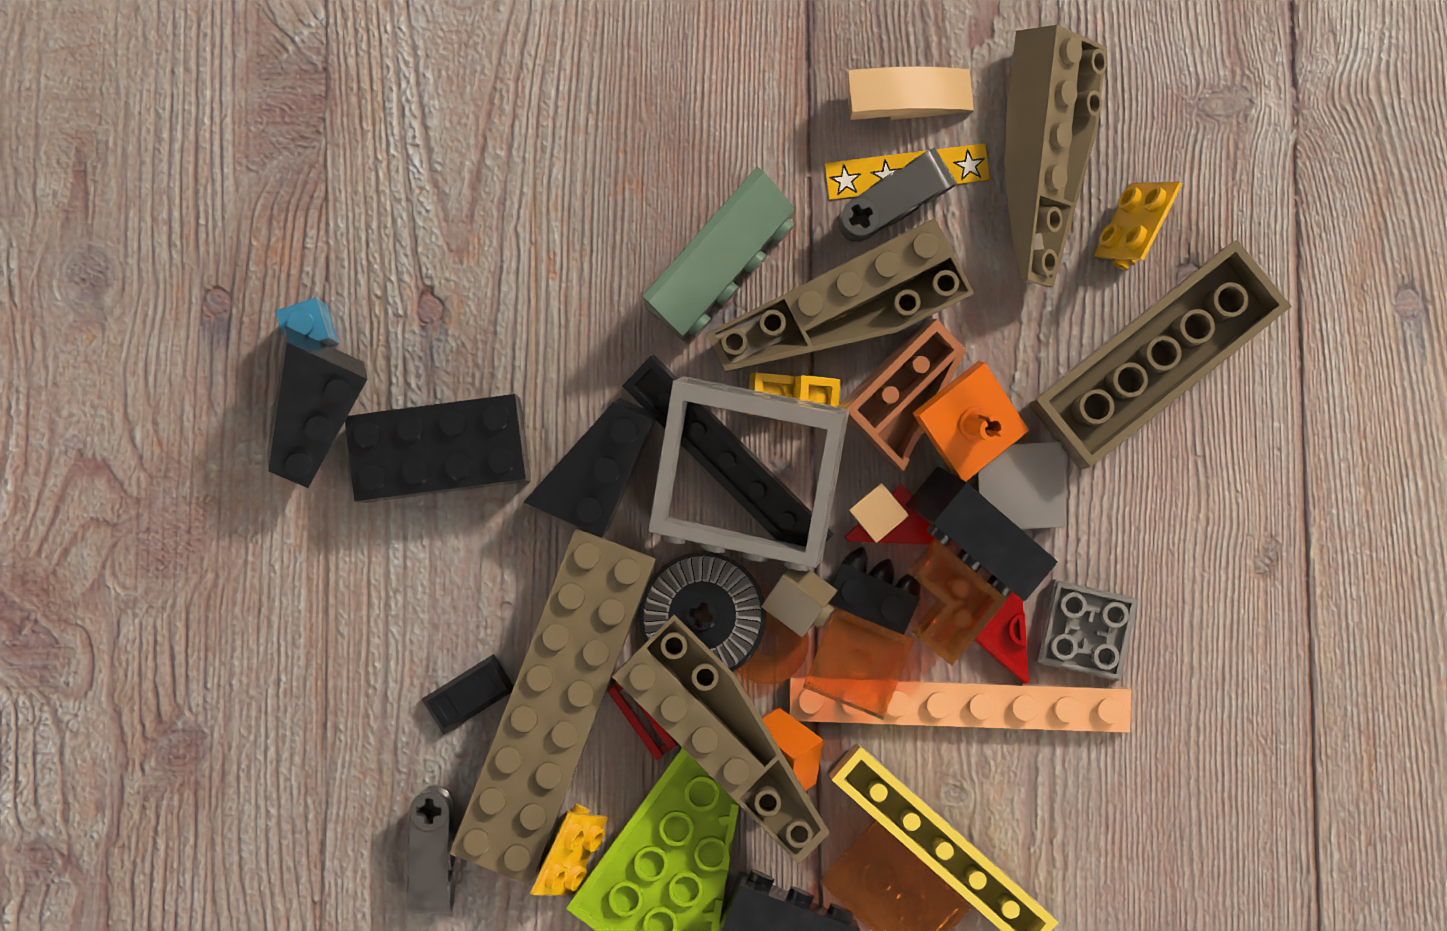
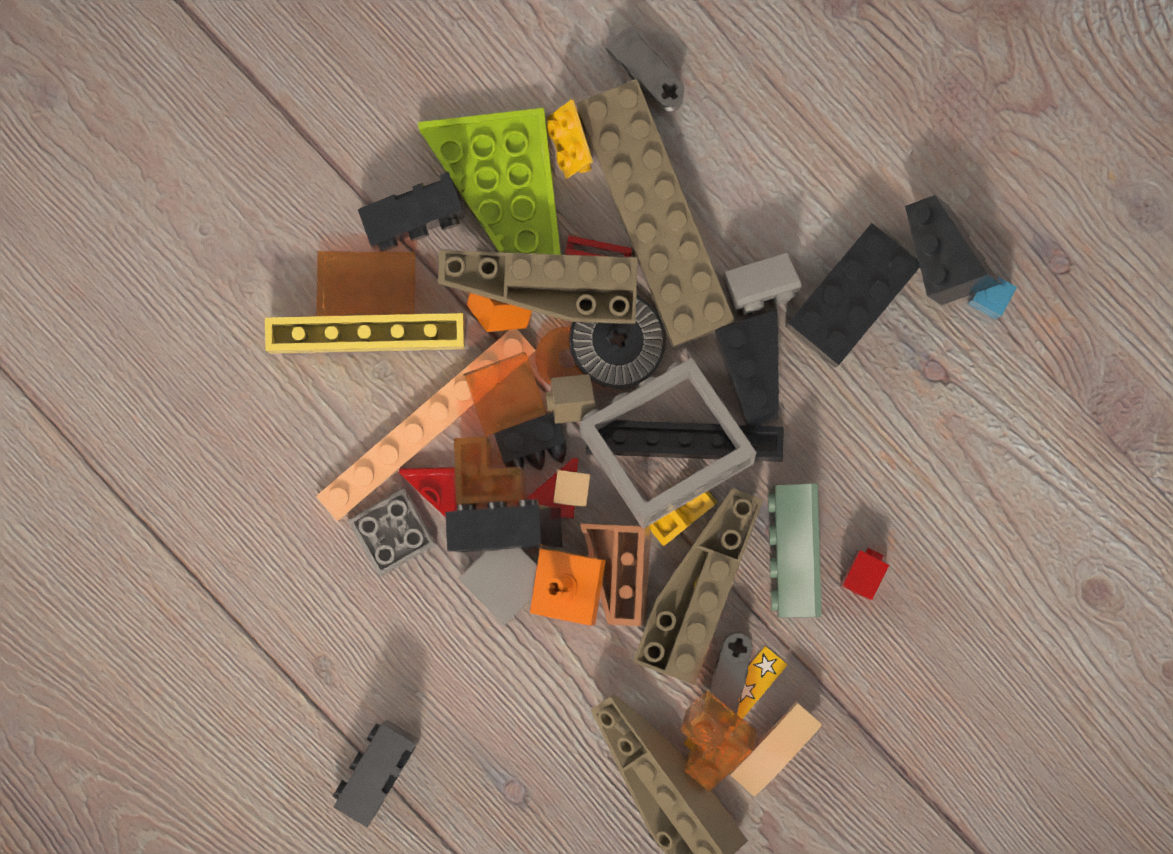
camera: 135 degrees right, 0 degrees up
(468, 694) = (708, 175): black tile -> none
(512, 541) = (761, 283): none -> light grey slope
(674, 177) = (865, 573): none -> red brick
(961, 145) = (720, 739): none -> clear orange brick
(1136, 222) = (577, 790): yellow hinge -> none
(1159, 355) = (494, 725): dark tan brick -> none
(1311, 416) = (374, 772): none -> black wedge

